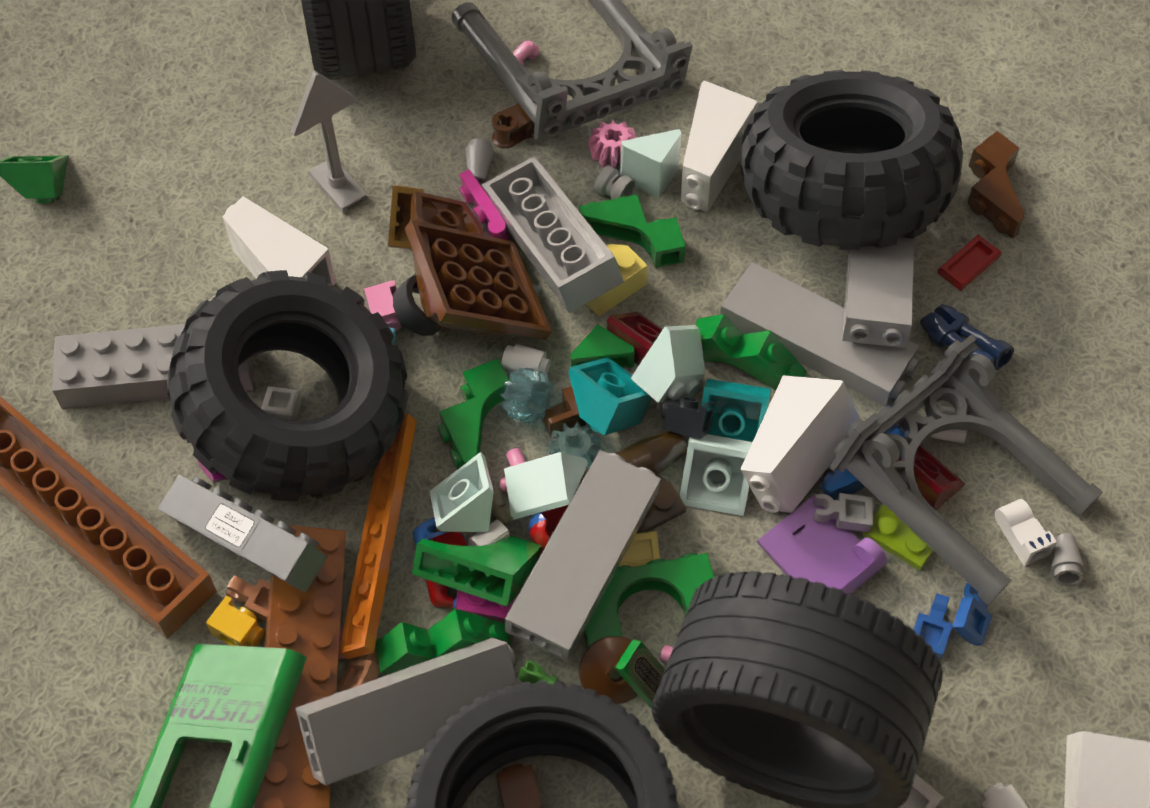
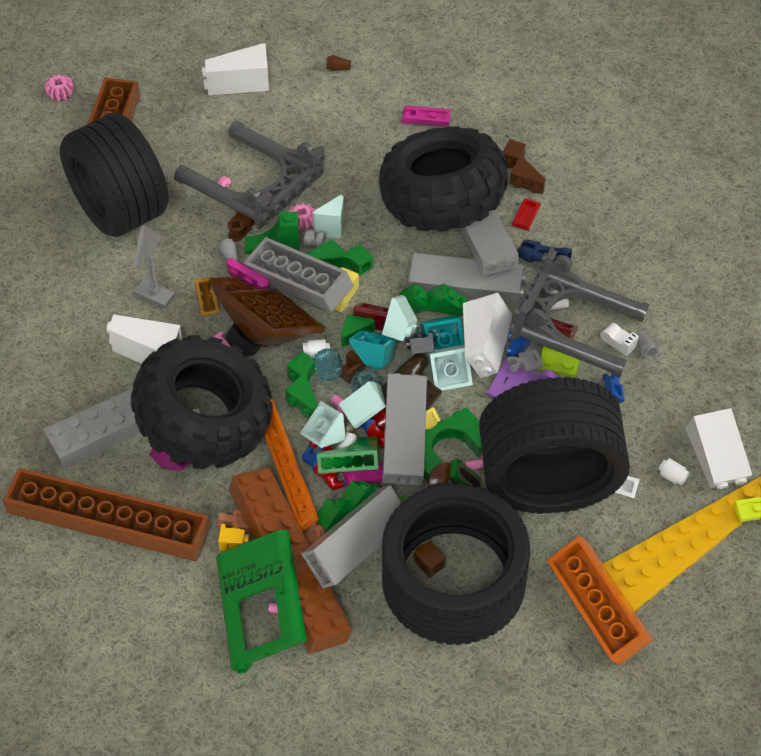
camera: 25 degrees left, 5 degrees down
(244, 533) = (215, 486): brick -> none
(567, 162) = (284, 231): none -> green arch
(713, 144) = (359, 193): white slope -> none
(885, 51) = (426, 116): none -> dark pink plate

